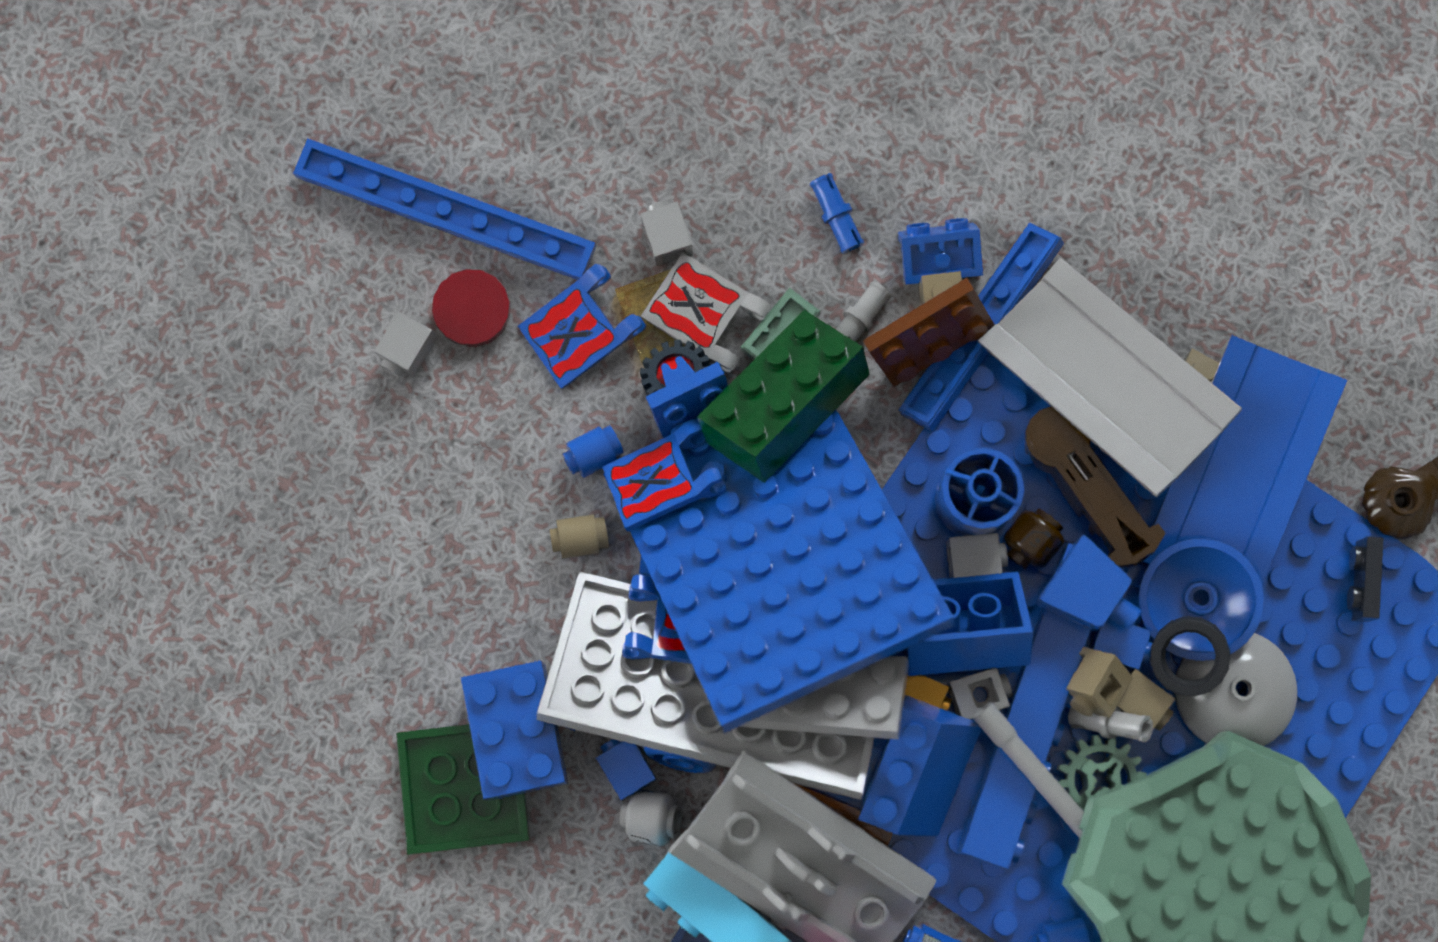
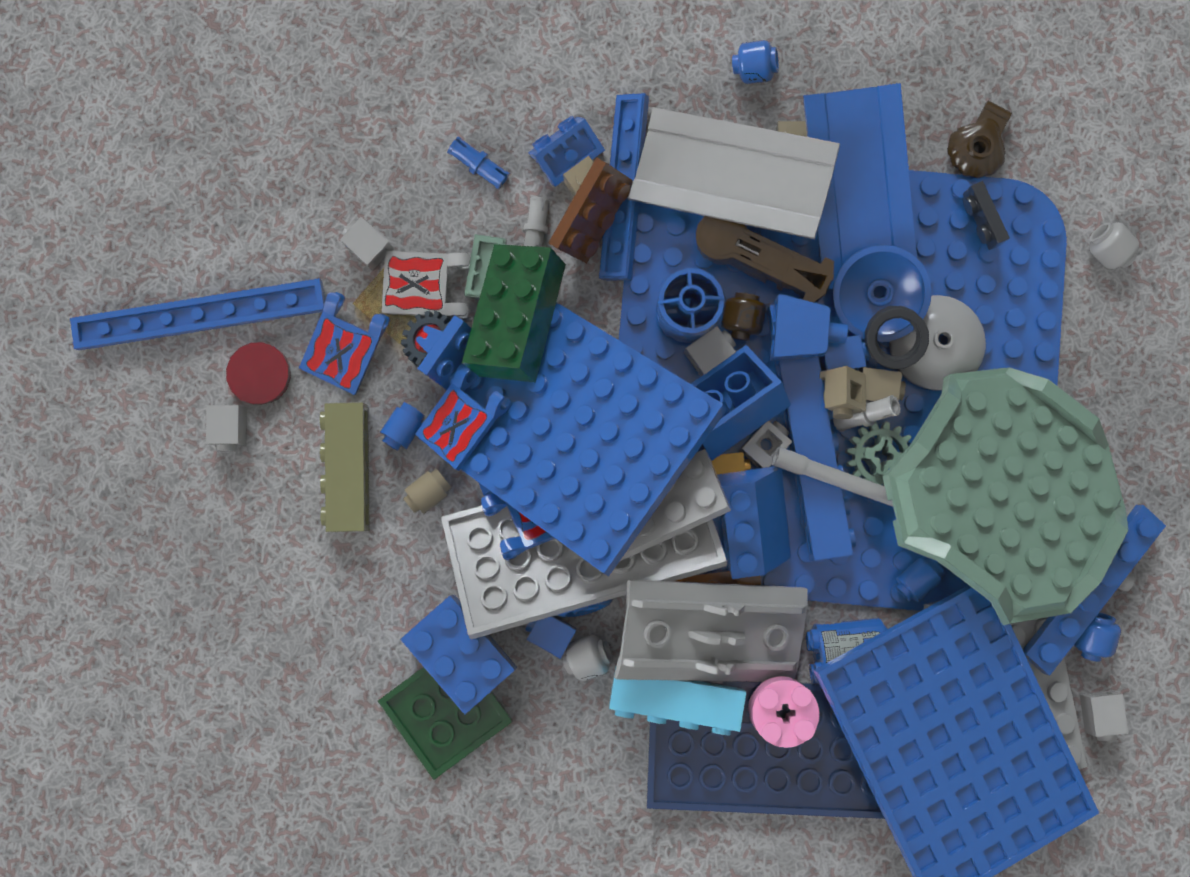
camera: 30 degrees left, 5 degrees up
(507, 461) = (345, 467): none -> olive brick
(1203, 270) = (756, 62): none -> blue head

